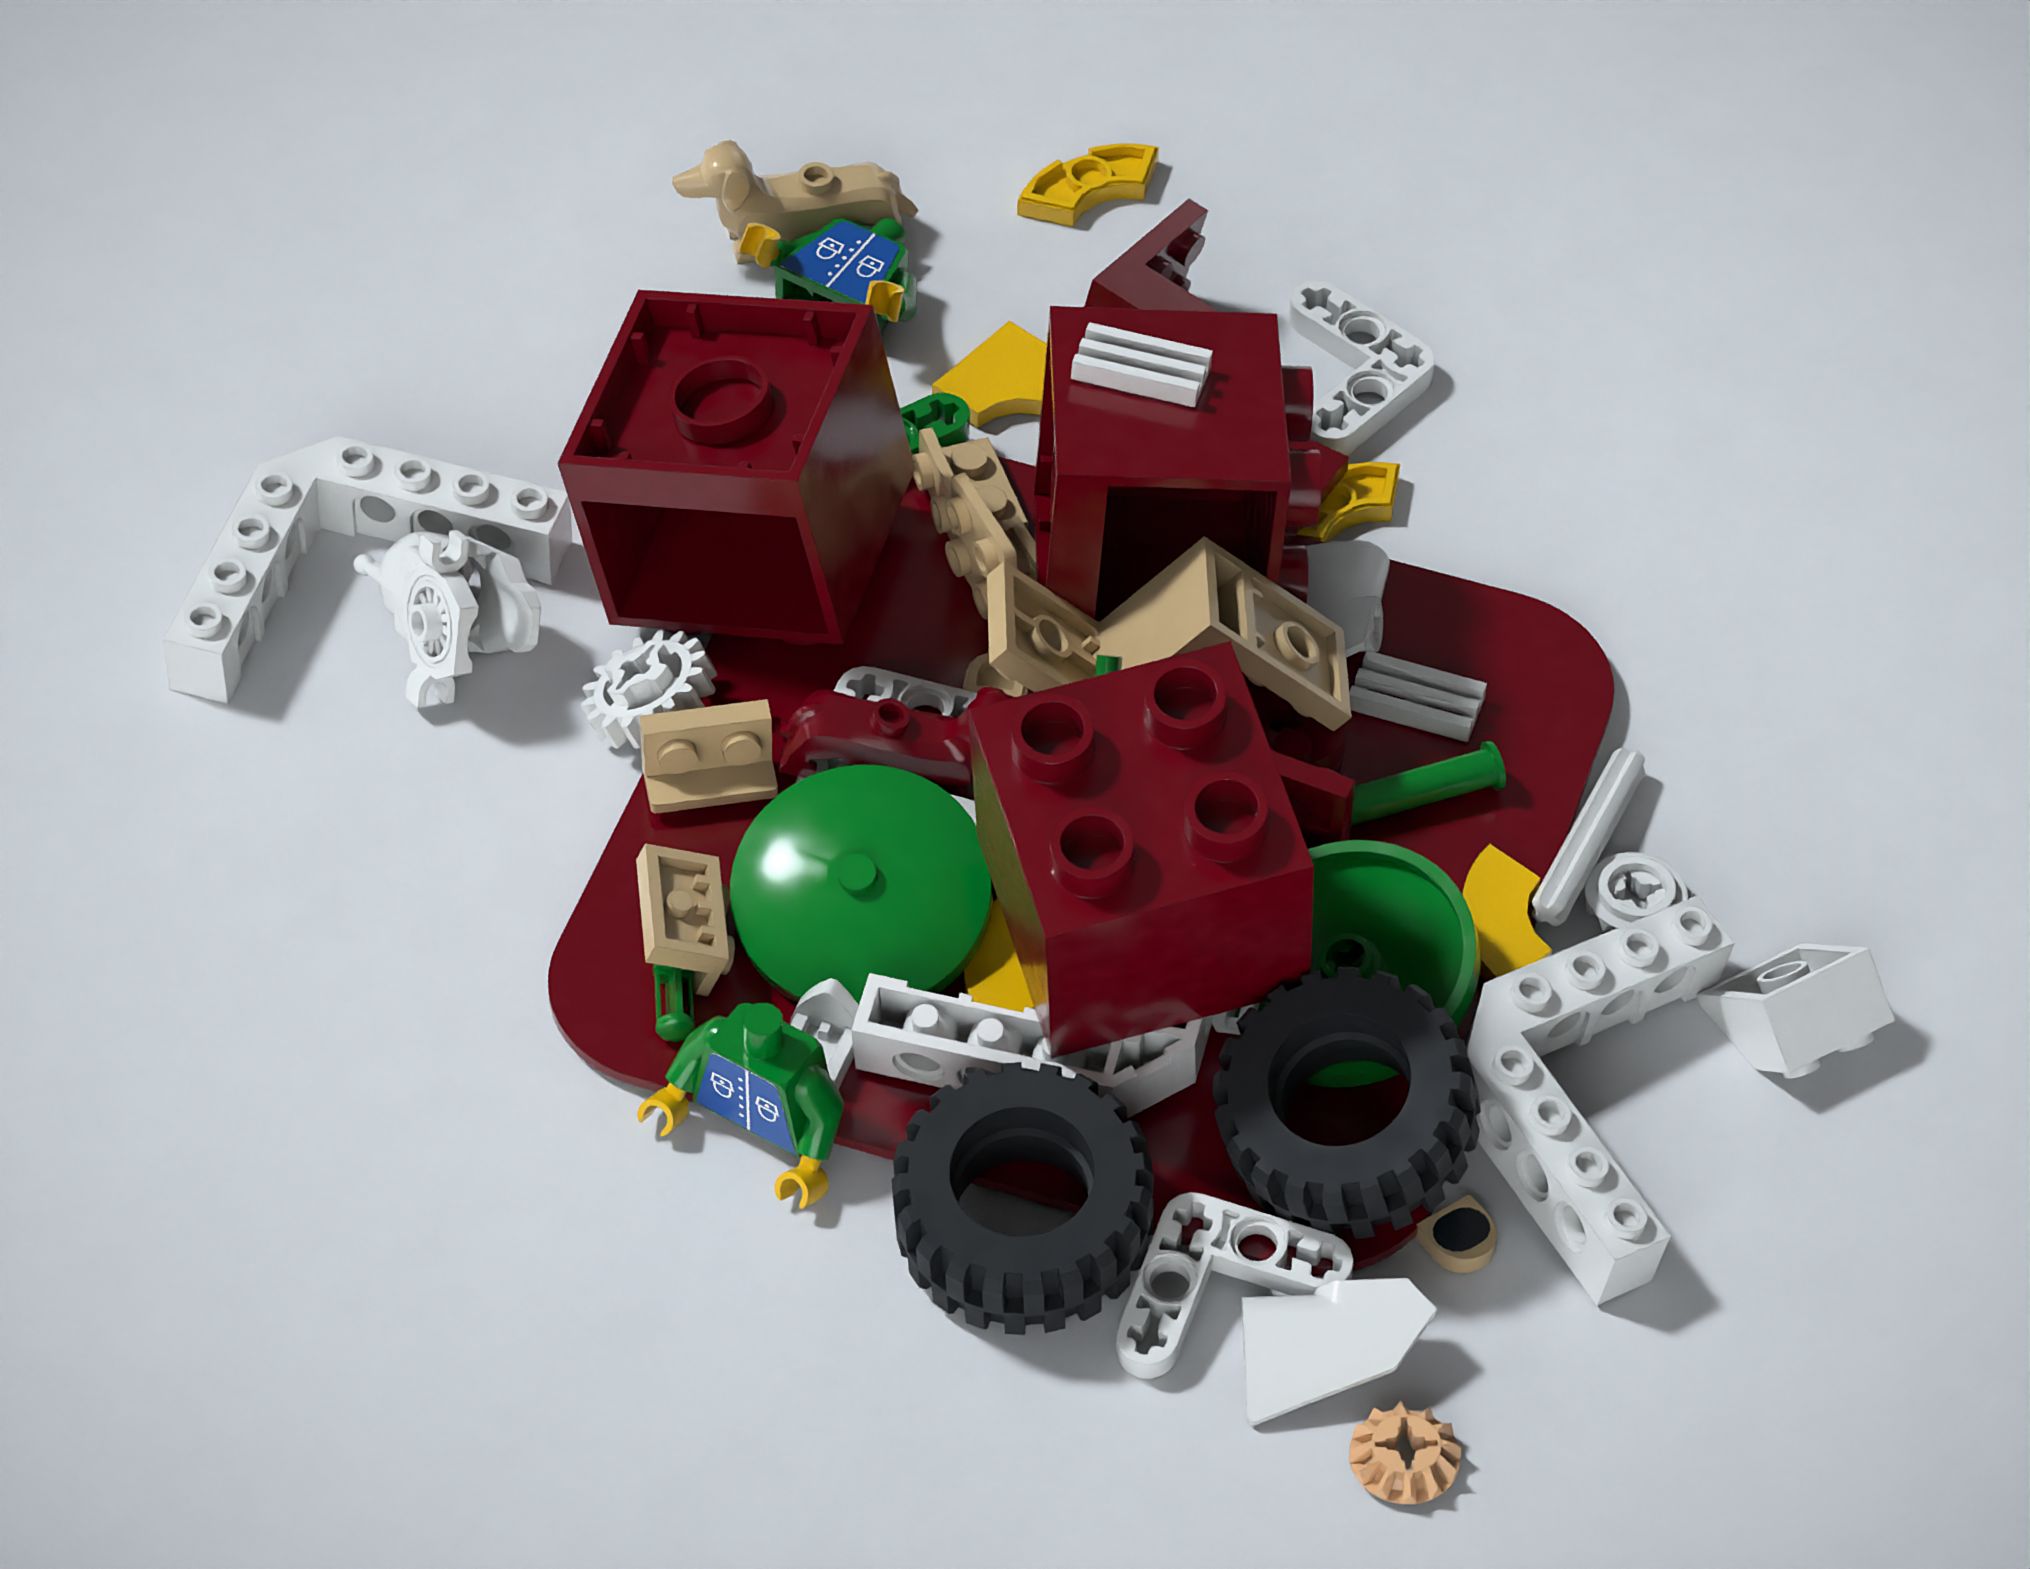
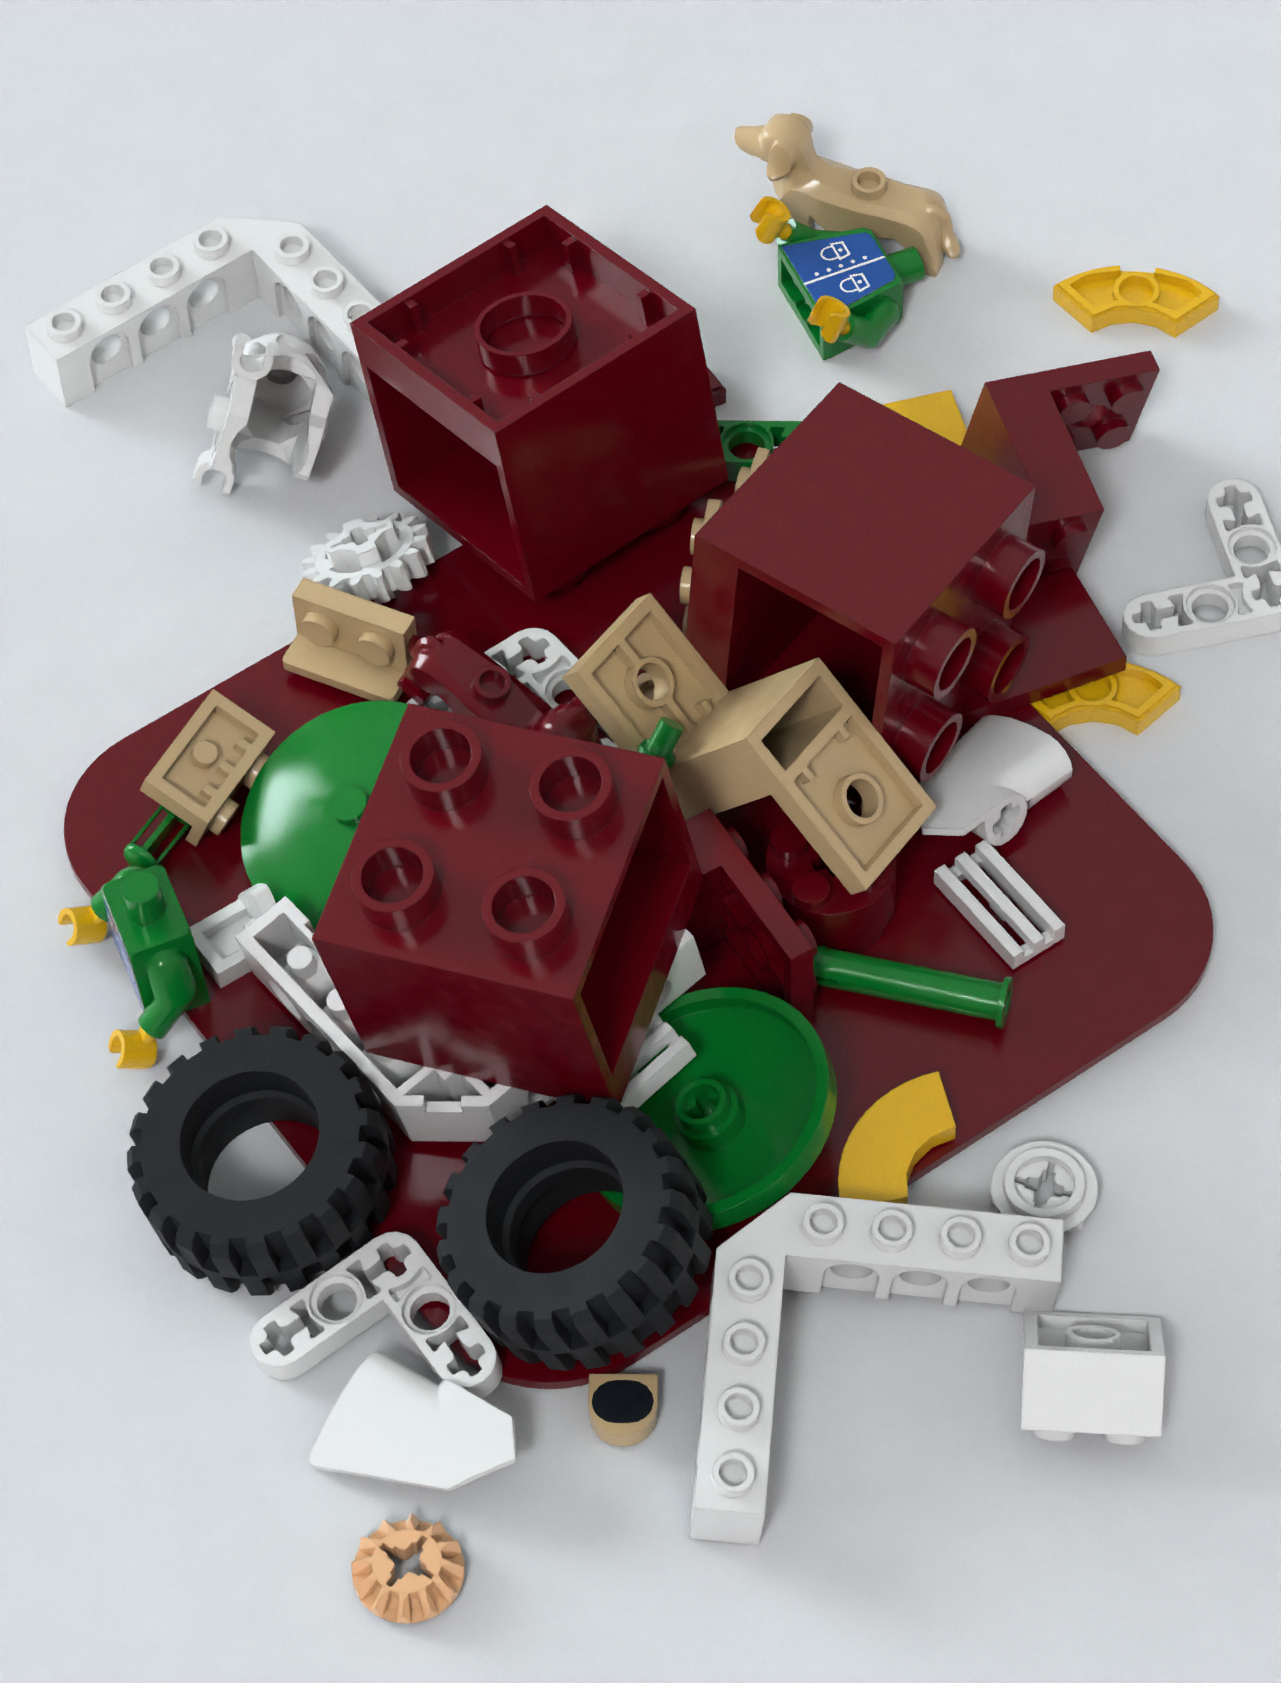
camera: 40 degrees right, 5 degrees up
(1141, 364) = (867, 469): white tile -> none
(1588, 837) = (1042, 1113): white axle -> none

